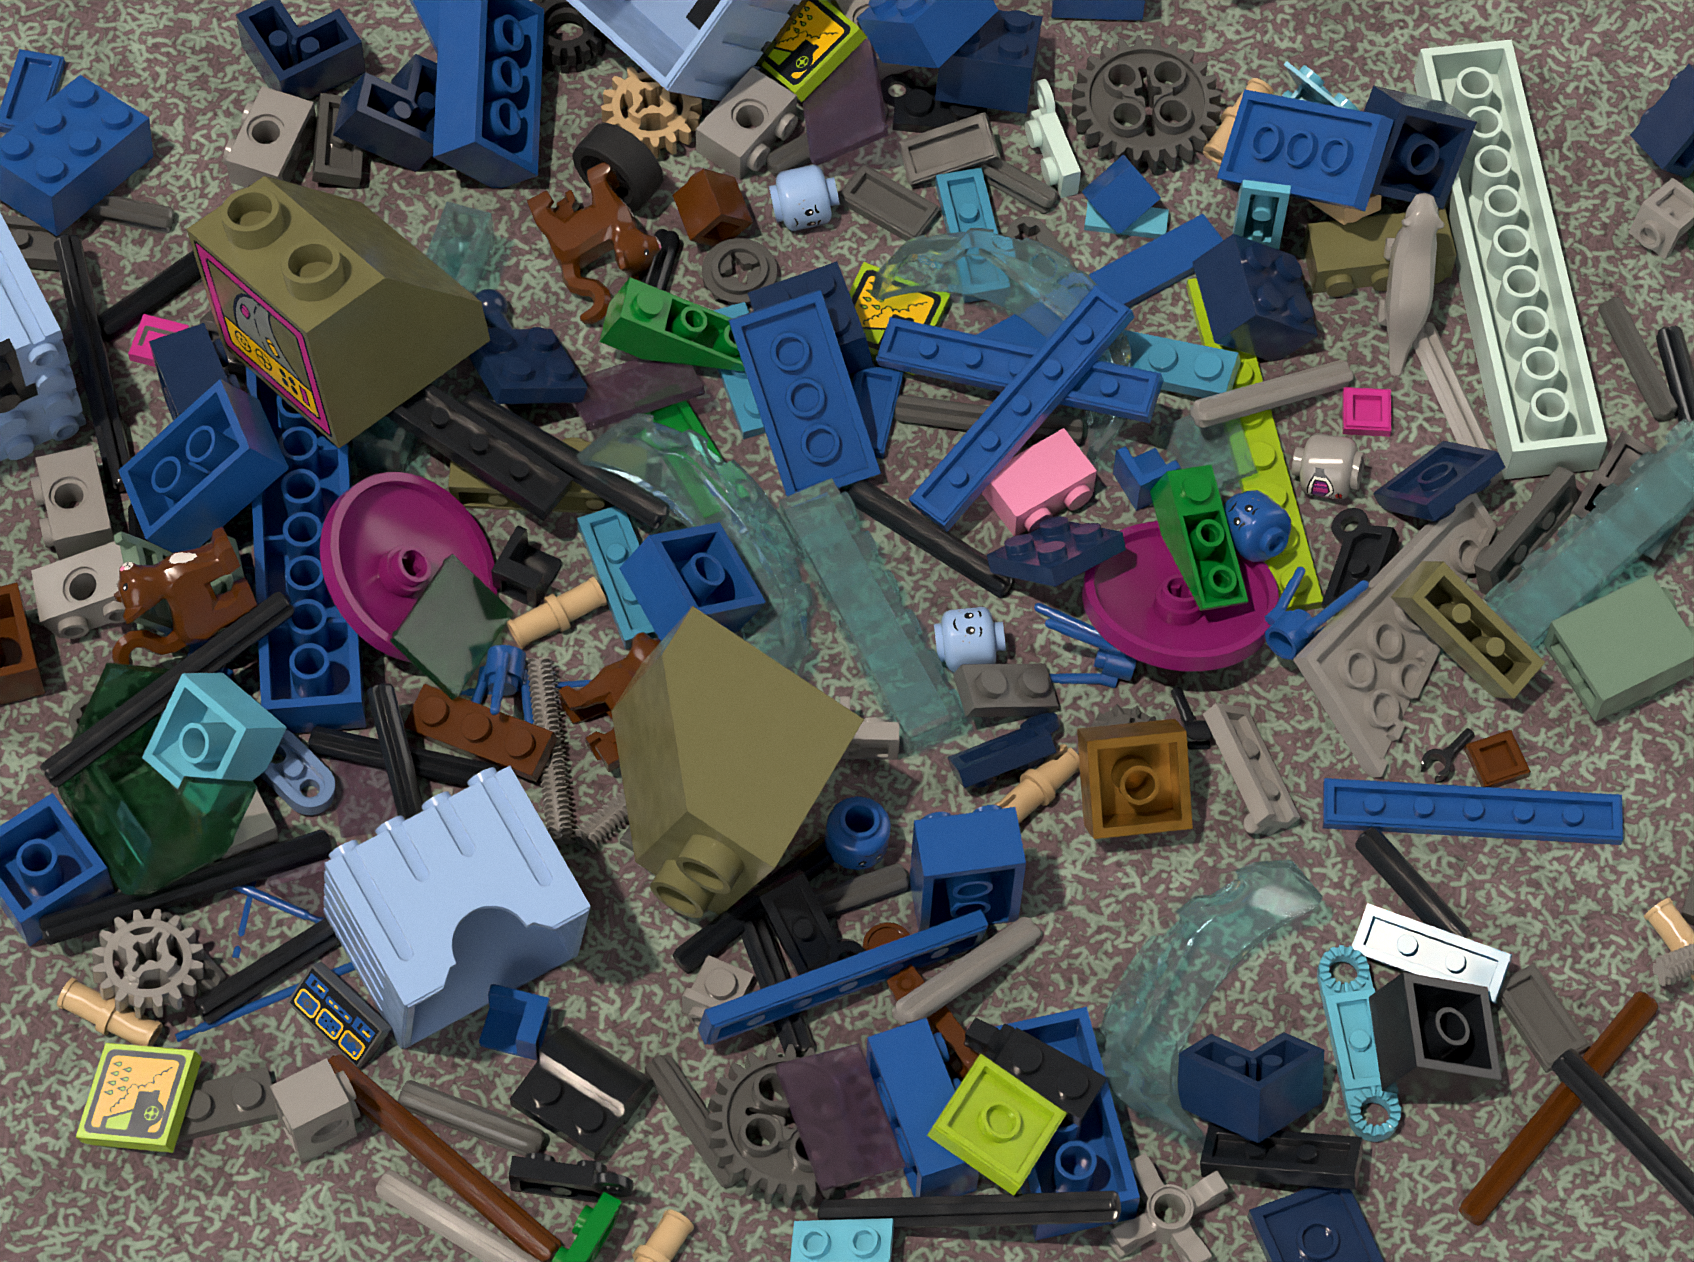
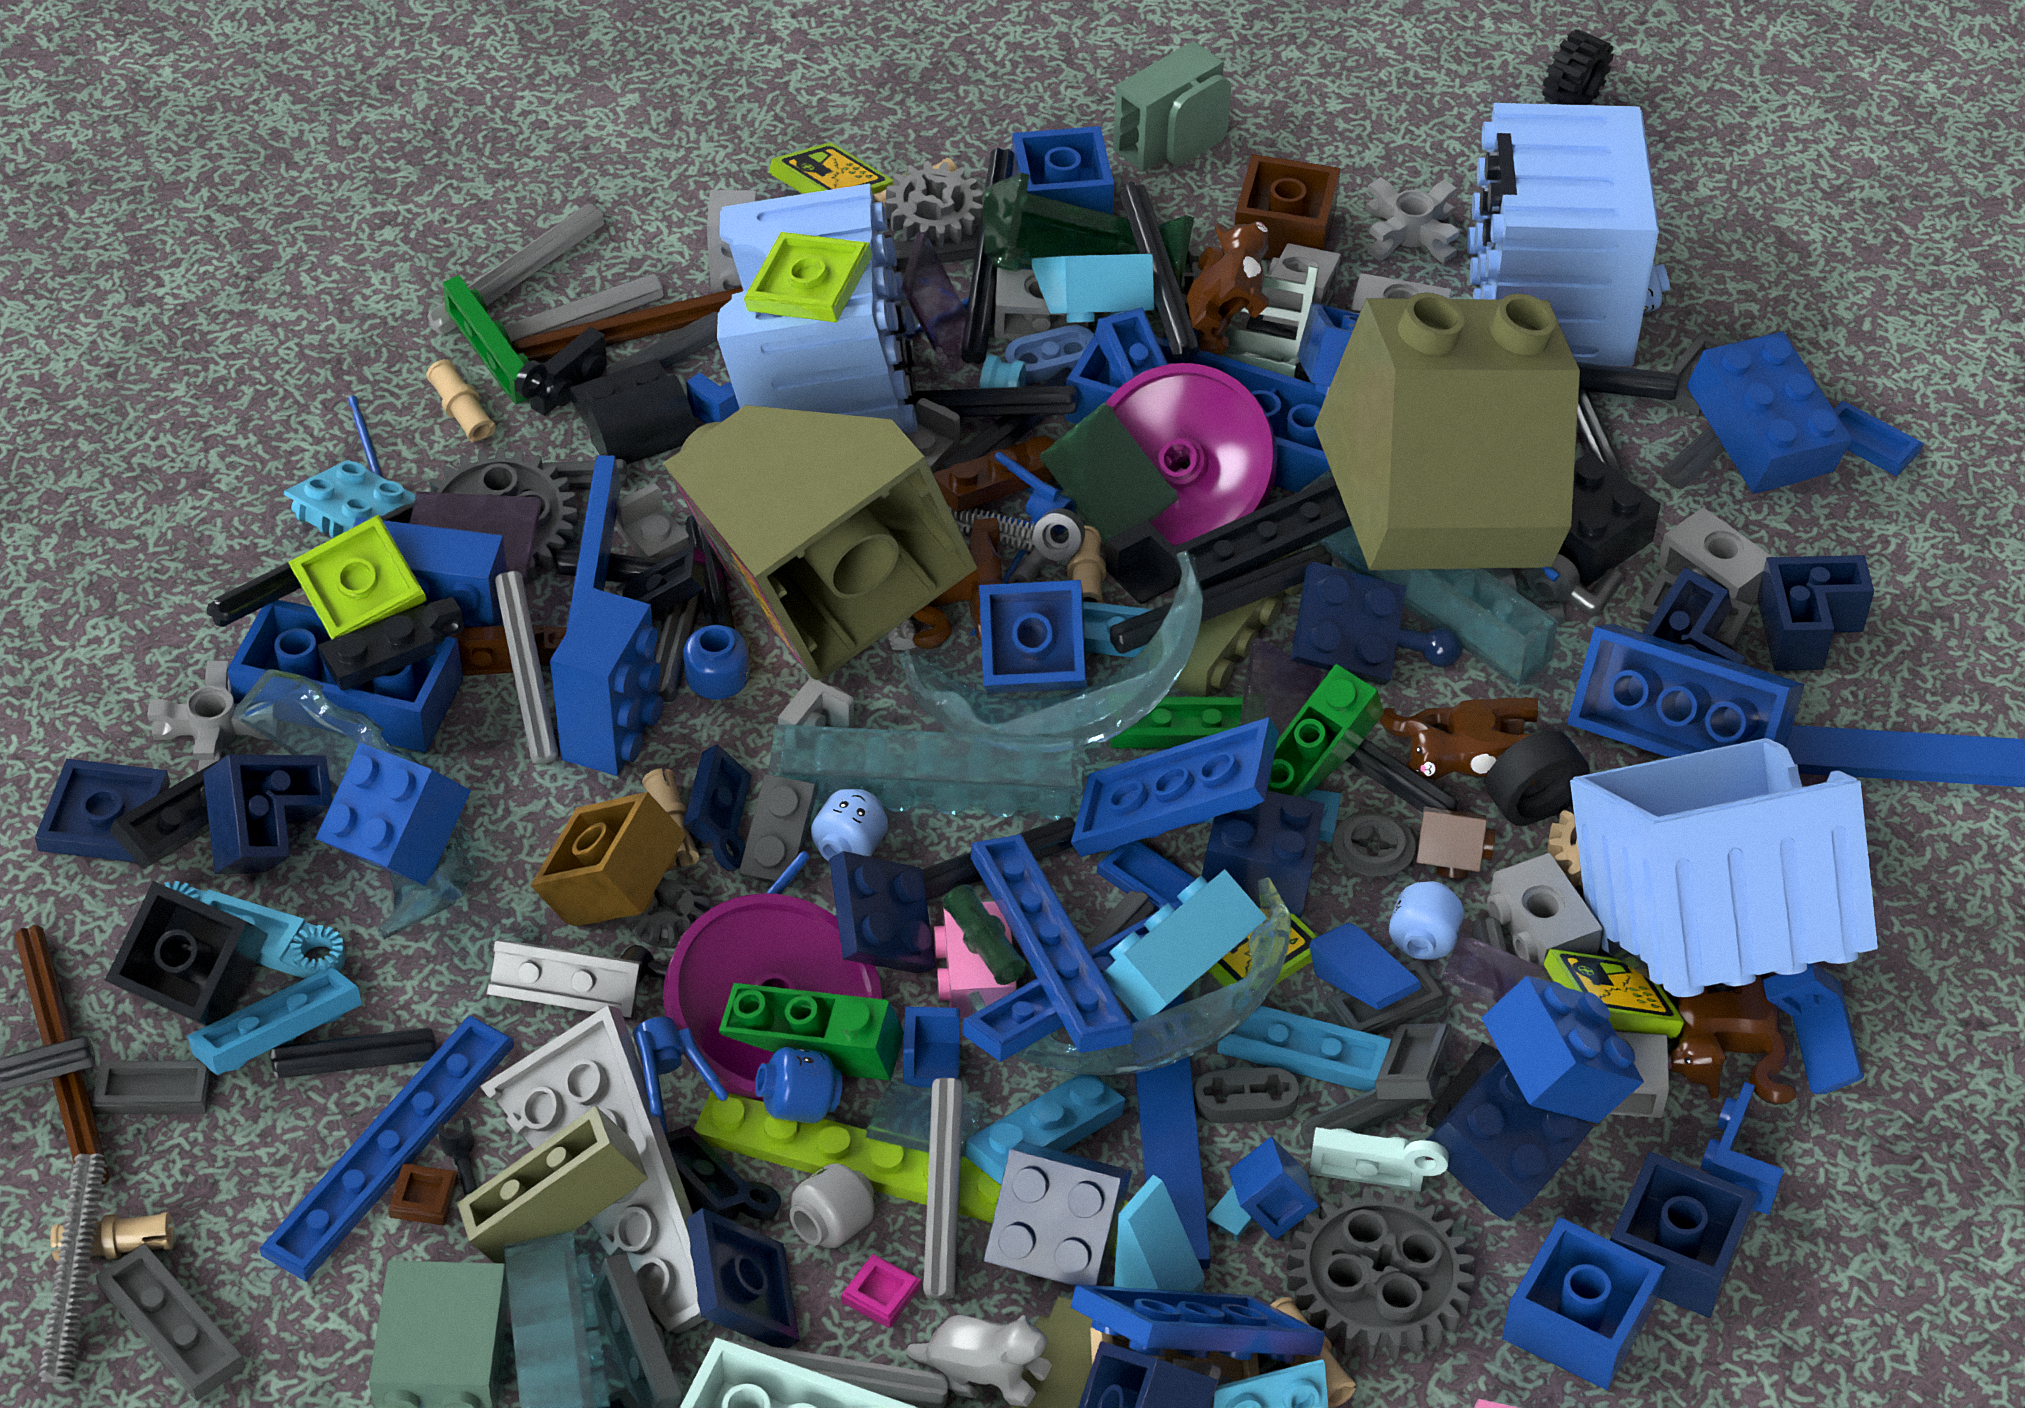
camera: 120 degrees right, 15 degrees down
(302, 653) = (1129, 343): none -> blue slope
(363, 784) = (1001, 374): none -> medium azure wheel
(486, 849) = (808, 277): none -> lime tile
(549, 635) = (1050, 546): none -> flat silver plate
(884, 214) = (1361, 967): none -> blue slope
(972, 309) = (1181, 944): none -> medium azure brick
(1042, 458) = (984, 934): none -> clear green pin
(1201, 963) = (393, 814): none -> blue brick

